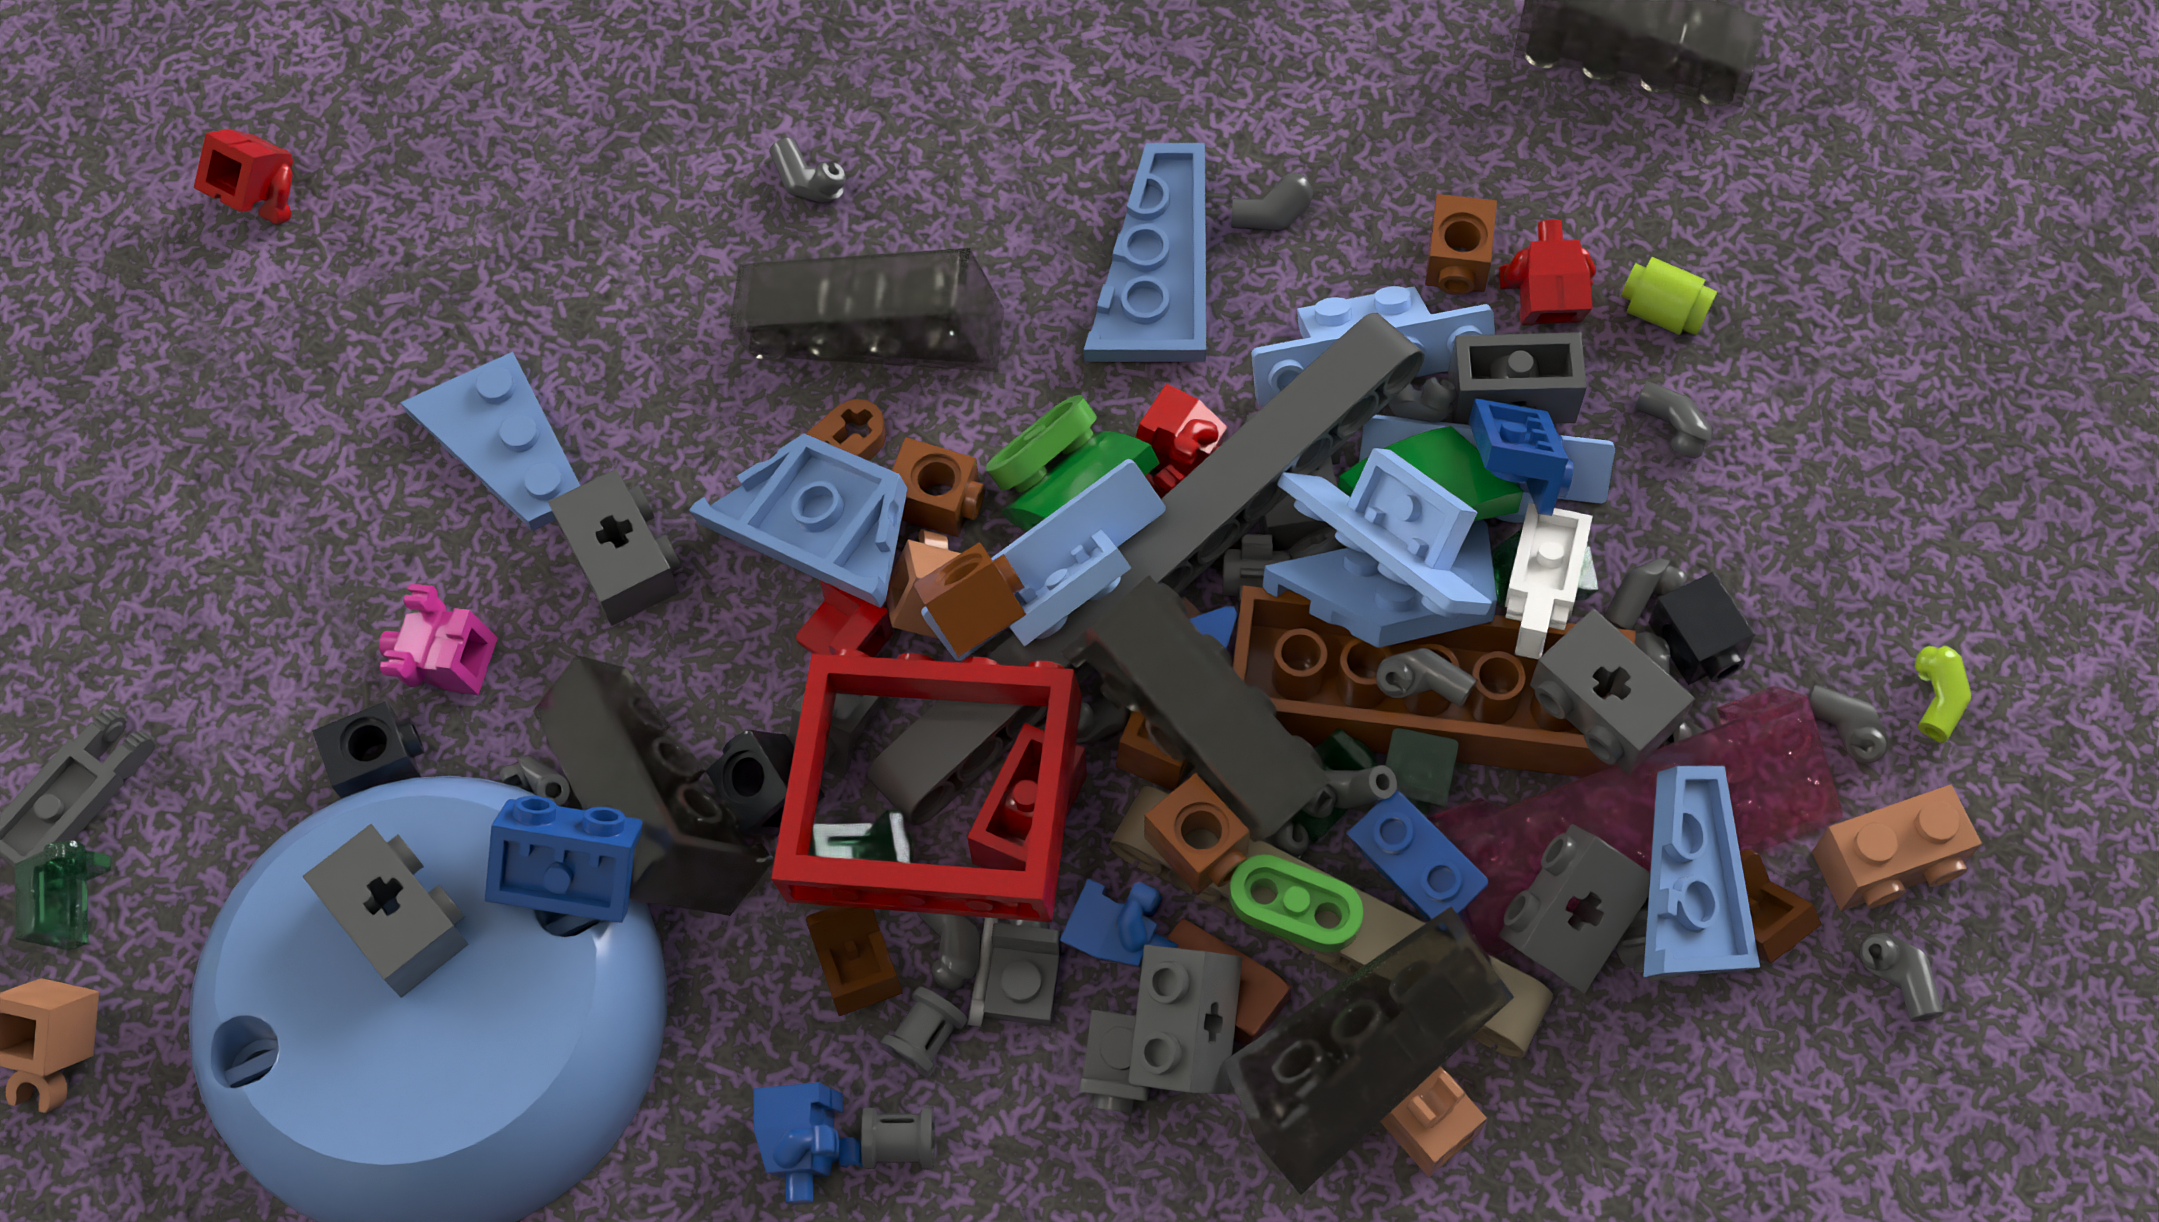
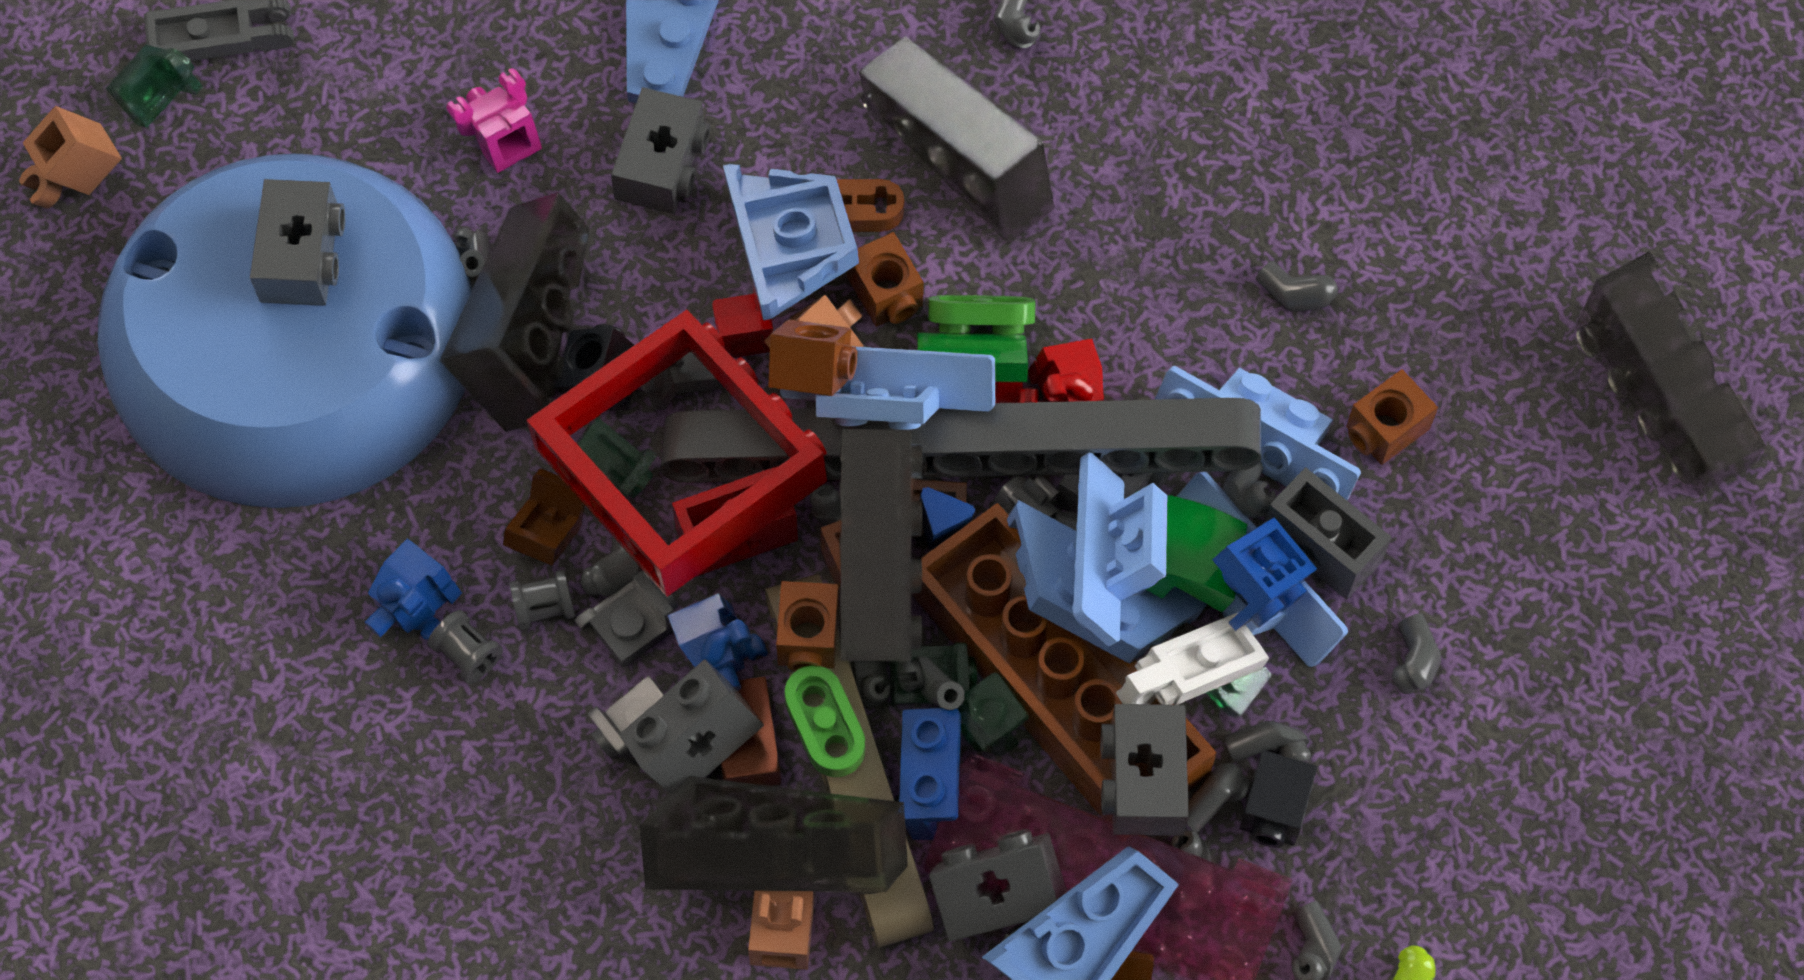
camera: 40 degrees right, 0 degrees up
(349, 738) = (391, 134): black brick -> none
(562, 858) = (419, 299): blue bracket -> none
(1158, 267) = (1172, 269): medium blue wing -> none
(1423, 672) = (1045, 652): dark grey arm -> none
(1551, 278) = (1428, 491): red piece -> none
(1668, 297) = (1496, 573): lime brick -> none

